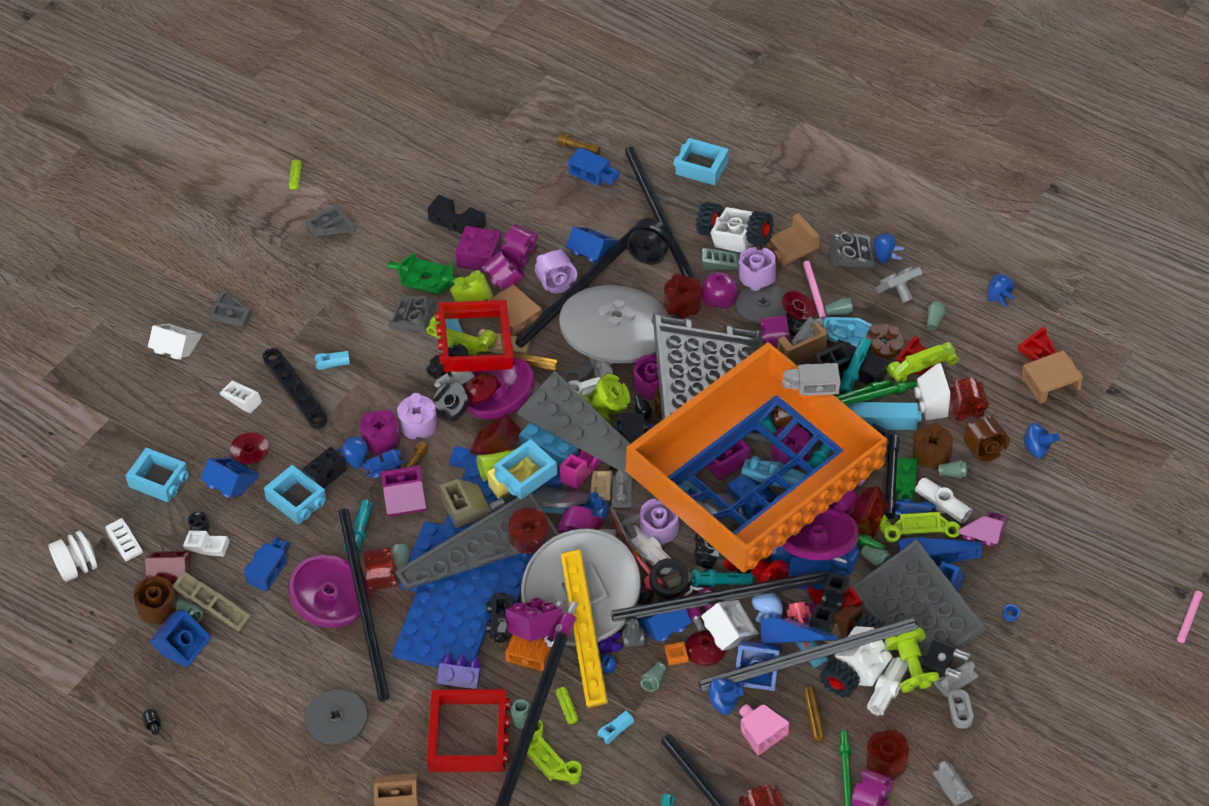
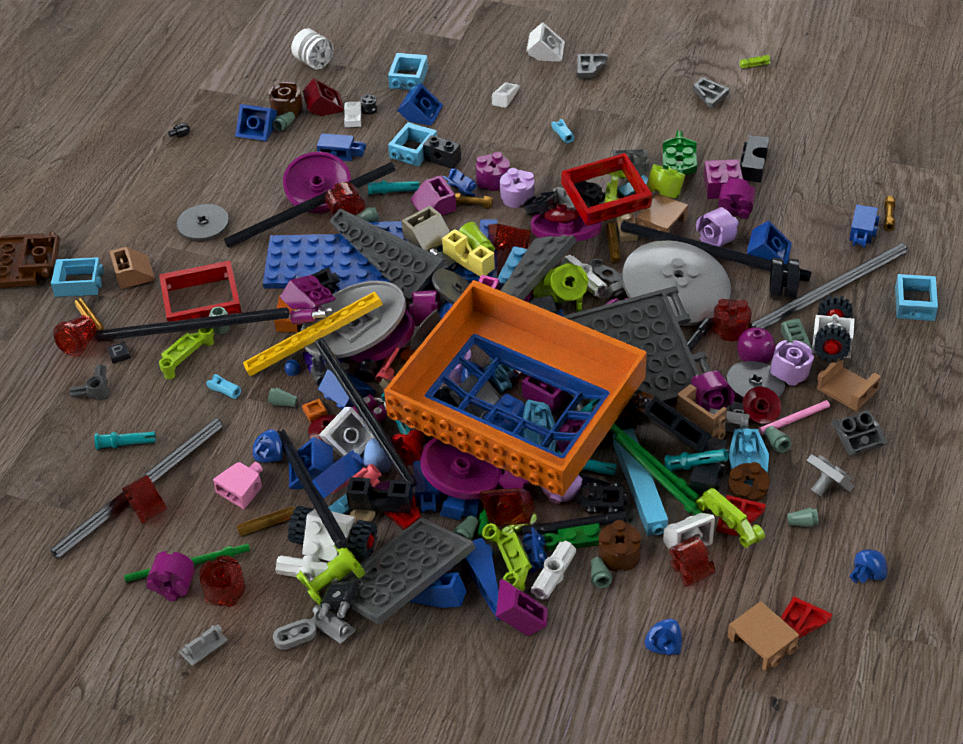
camera: 75 degrees right, 5 degrees down
(119, 529) = (345, 72): white slope -> none
(211, 601) = (293, 128): dark tan slope -> none
(249, 448) = (450, 109): dark red dish -> none
(295, 388) = (523, 118): black plate -> none
(354, 451) = (464, 160): blue piece -> none
(459, 674) = (257, 277): plate -> none
(503, 270) = (699, 195): magenta brick -> none
(527, 519) = (399, 267): clear red brick -> none
(529, 449) = (470, 255): medium azure window -> none
(566, 705) = (241, 351): lime axle -> none
(668, 563) = (372, 367): black tyre -> none
(813, 379) = (608, 392): light grey hinge -> none
(847, 618) = (370, 512): reddish brown slope -> none
(884, 246) = (877, 457): blue piece -> none
(986, 439) = (643, 587): reddish brown brick -> none
(1014, 615) = (425, 651): blue hinge -> none

